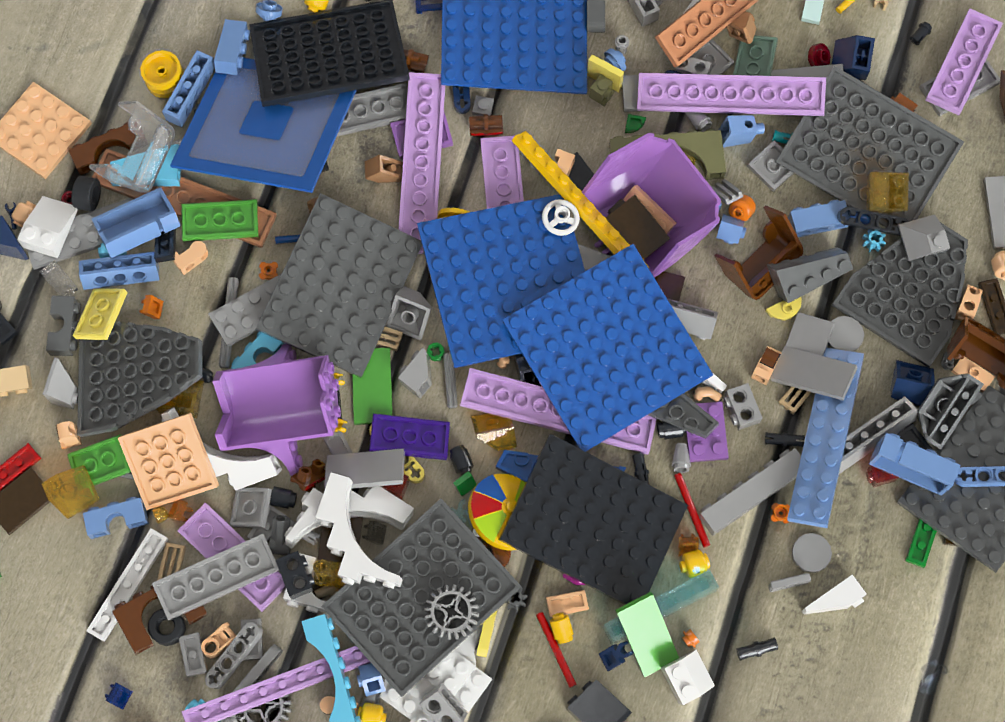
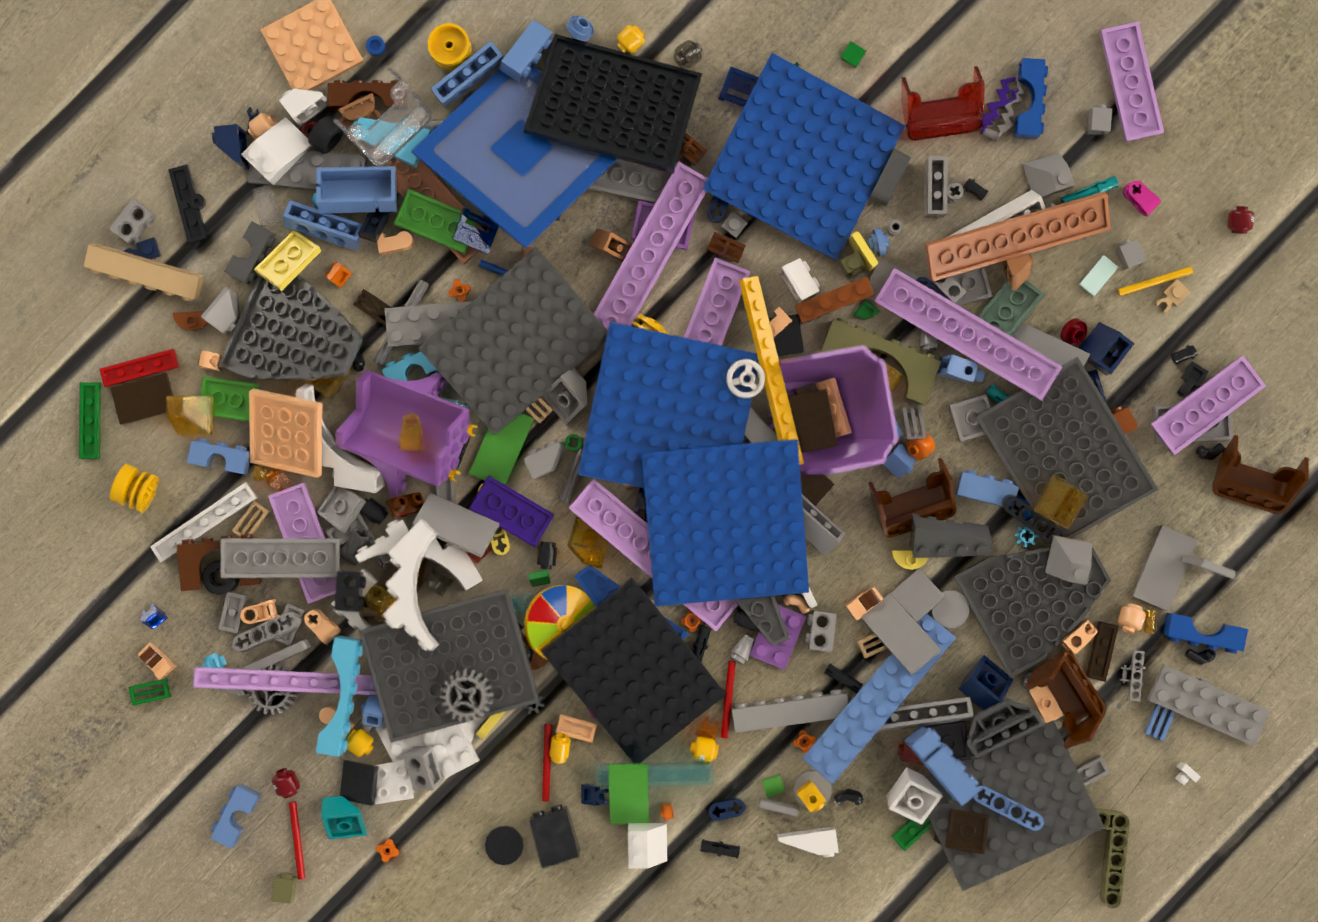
camera: 25 degrees right, 15 degrees up
(34, 410) = (190, 320): none -> dark orange plate
(49, 581) = (134, 488): none -> yellow wheel
(54, 176) = (303, 104): none -> white slope
(96, 105) = (375, 46): none -> blue tile
(108, 154) = (360, 108): none -> medium nougat plate
(182, 319) = (361, 299): none -> dark brown tile
(259, 215) = (473, 236): none -> plate
(285, 404) = (411, 433): none -> clear yellow piece
(286, 627) = (324, 629): none -> light nougat piece
(563, 123) = (799, 280): none -> white slope
(613, 111) = (834, 300): none -> dark orange arch
(624, 460) = (691, 625): none -> orange plate
(740, 606) = (727, 813): none -> dark blue beam
(774, 567) = (773, 785): none -> bright green slope
(814, 556) = (811, 796): none -> yellow brick
(848, 540) = (850, 795): none -> black arm
(905, 509) = (913, 796): none -> white slope
(938, 46) = (1193, 377): none -> black plate
(970, 515) = (967, 831): none -> dark brown tile
(988, 101) = (1210, 454): none -> black arm

